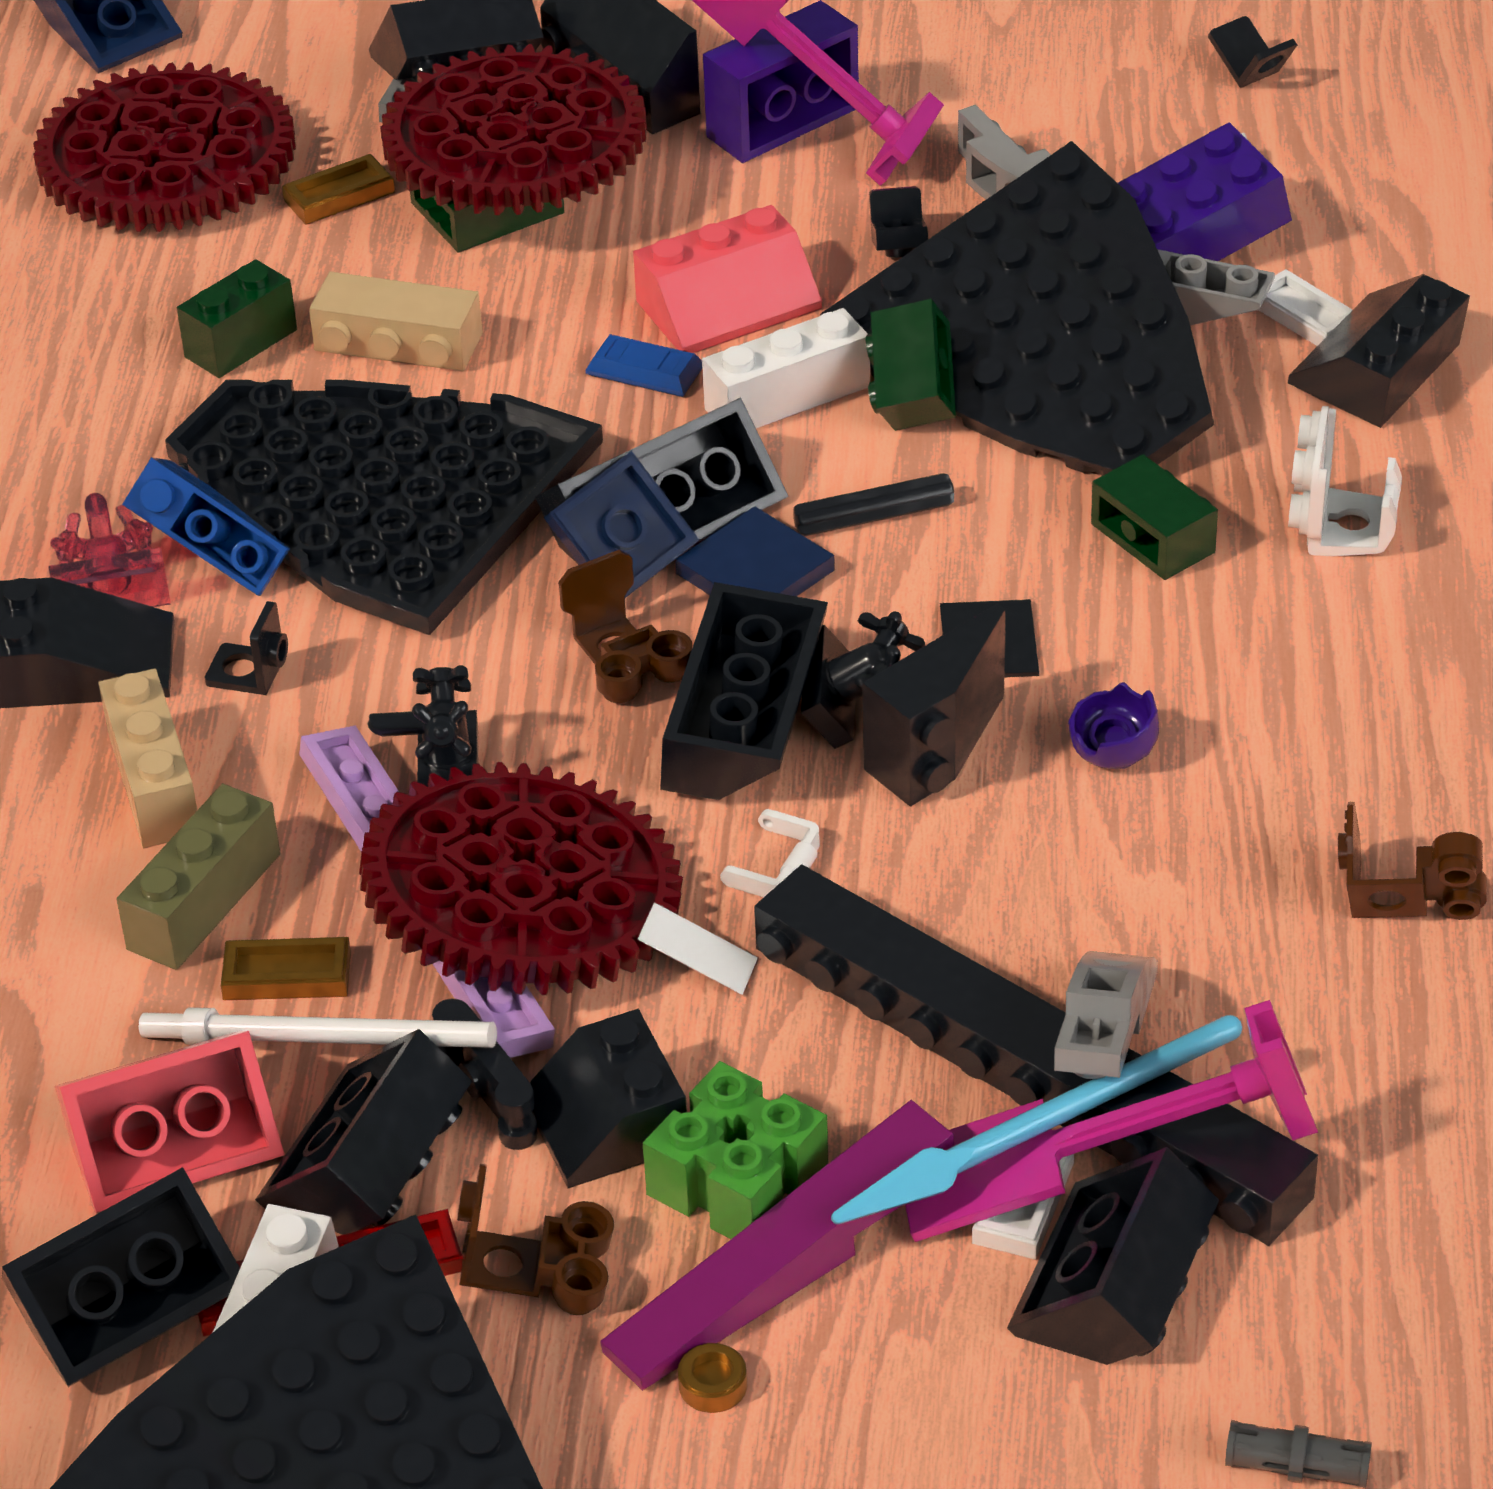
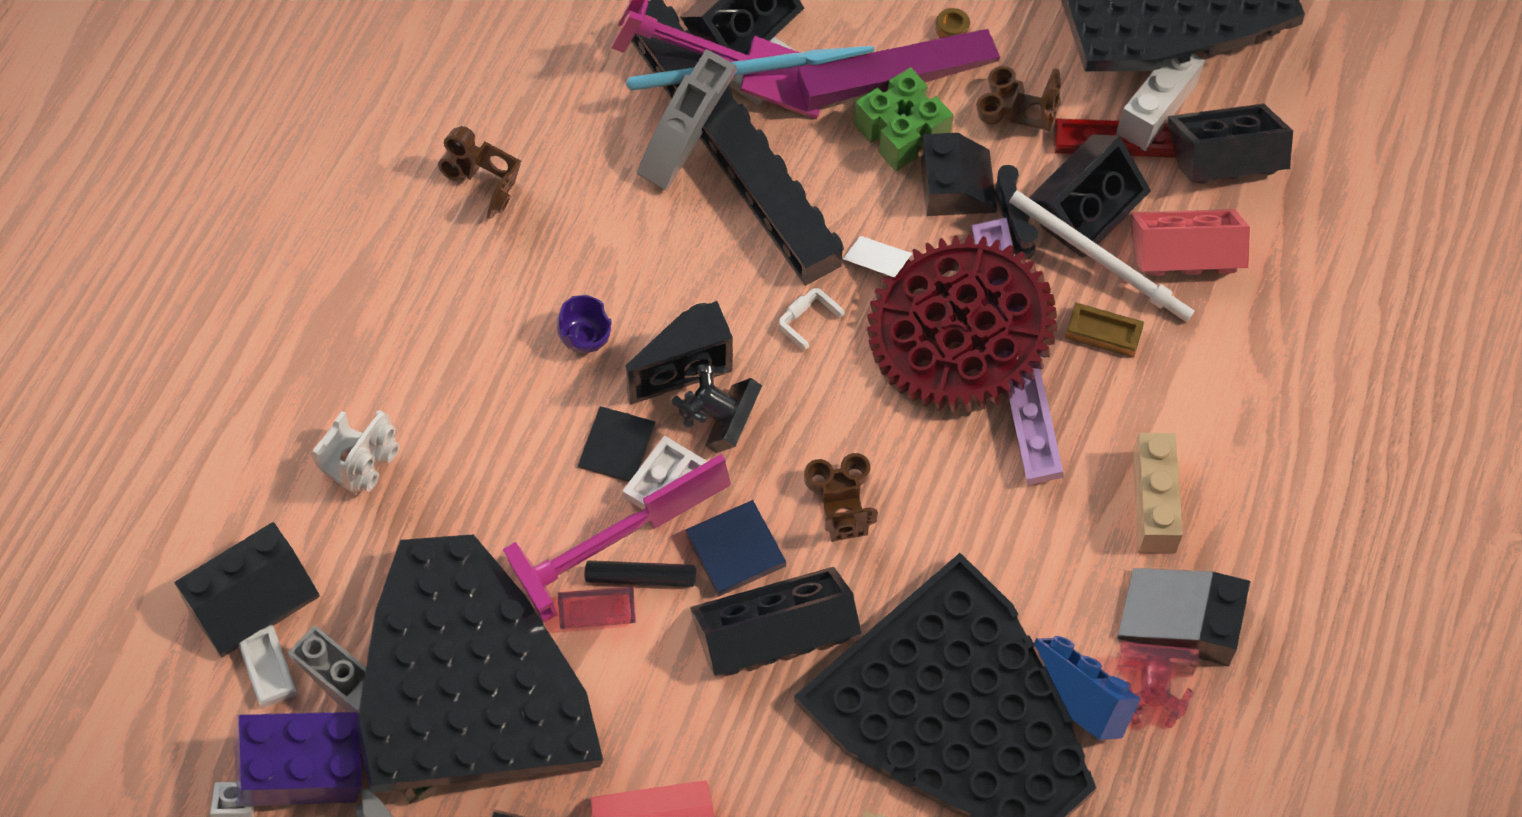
camera: 165 degrees left, 20 degrees up
(198, 876) = (1143, 390): olive brick -> none
(266, 652) = (1068, 562): black bracket -> none
(443, 727) = (977, 444): black piece -> none
(623, 513) = (817, 573): dark blue tile -> none
(645, 365) = (738, 774): blue tile -> none
(739, 690) = (789, 412): black slope -> none
(790, 368) = (651, 704): white brick -> none
(860, 544) = (659, 509): none -> dark pink piece
(893, 584) = (662, 467): none -> white wing
(911, 365) = (571, 656): dark green brick -> none
(915, 456) = (596, 607): none -> clear pink tile
(1154, 516) = (474, 488): dark green brick -> none

